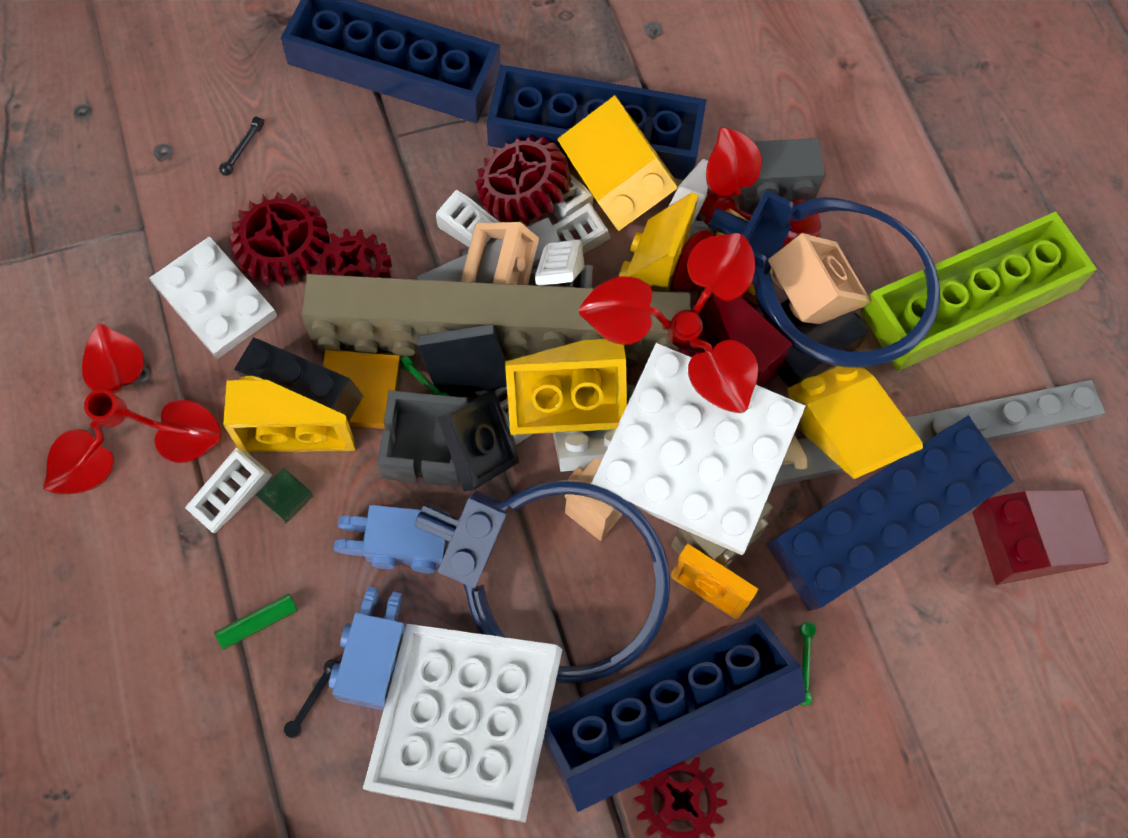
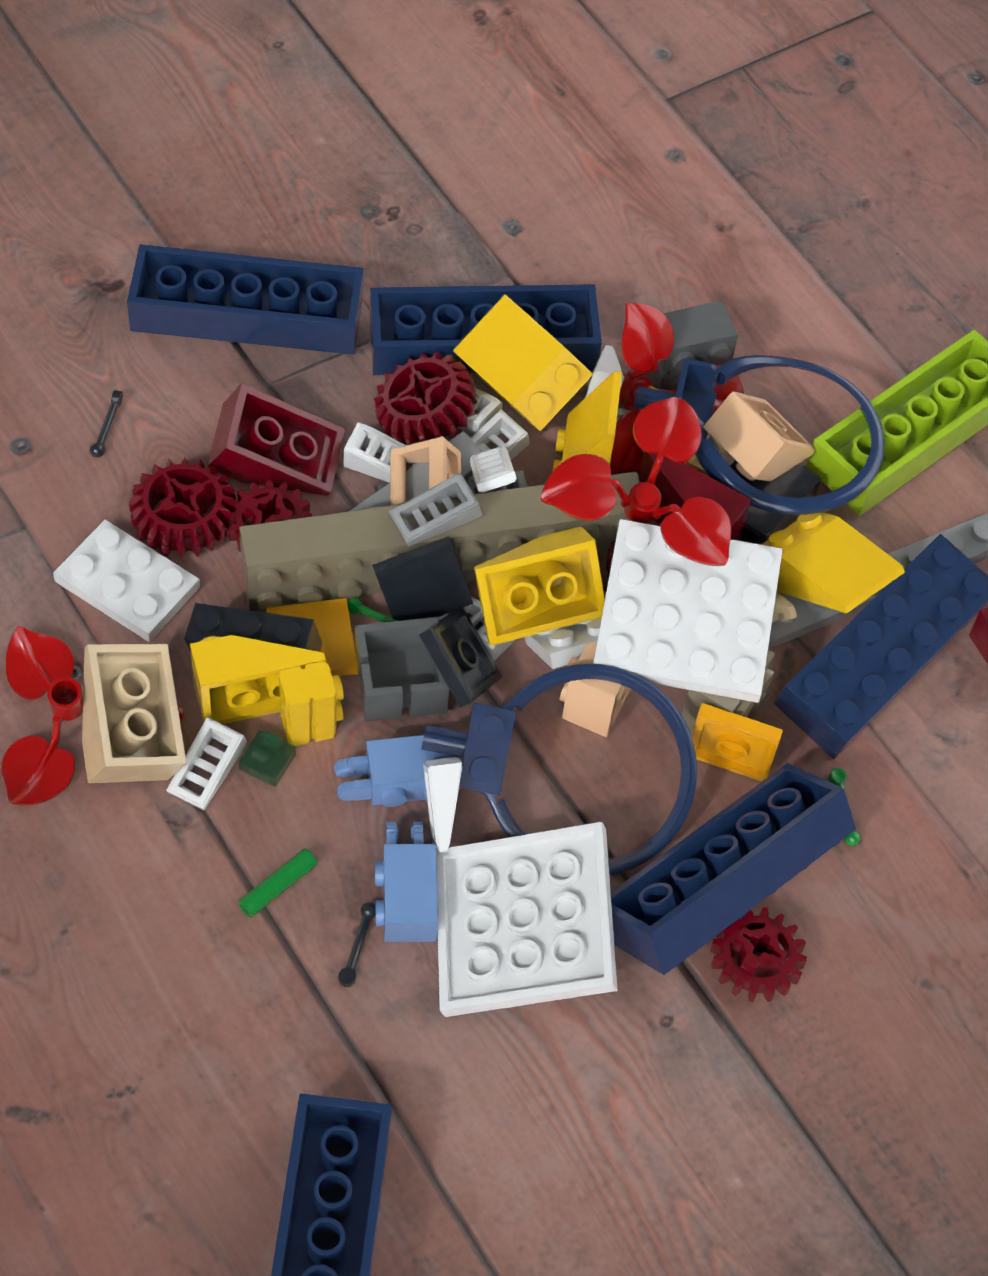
camera: 15 degrees left, 10 degrees down
(161, 431) = (130, 714): none -> tan slope
(328, 455) = (310, 703): none -> yellow brick
(380, 195) = (275, 441): none -> dark red slope
(421, 568) = (442, 788): none -> white slope
(498, 280) = (441, 493): none -> light grey slope

